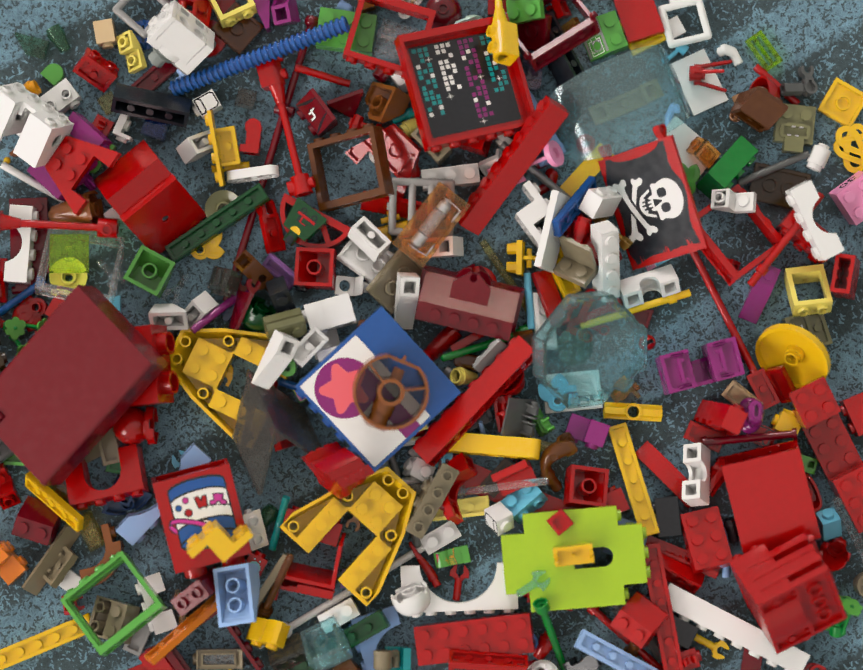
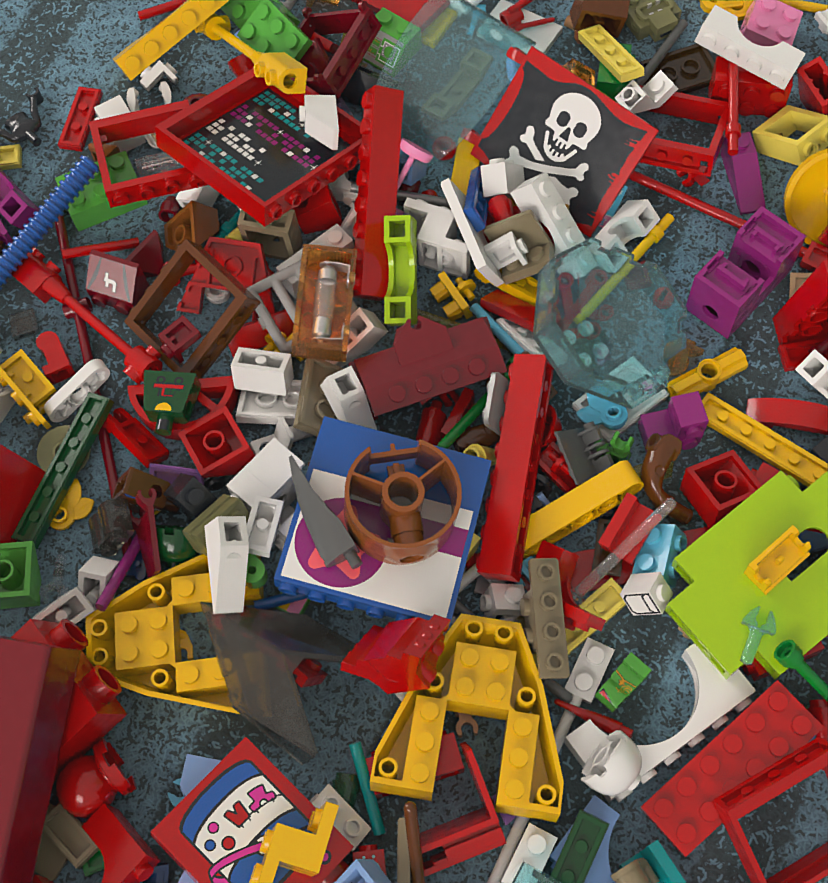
camera: 30 degrees left, 20 degrees down
(331, 186) = (178, 338): none -> dark red bracket
(340, 375) = (324, 526): none -> dark grey piece
(458, 581) = (651, 711): red bar -> none
(499, 219) = (401, 248): none -> lime arch
(507, 94) = (321, 119): none -> white slope
(560, 521) = (728, 533): red tile -> none
(566, 258) = (506, 250): none -> white bracket
(734, 153) = (611, 53): none -> light yellow tile
(818, 157) = (695, 16): white brick -> none

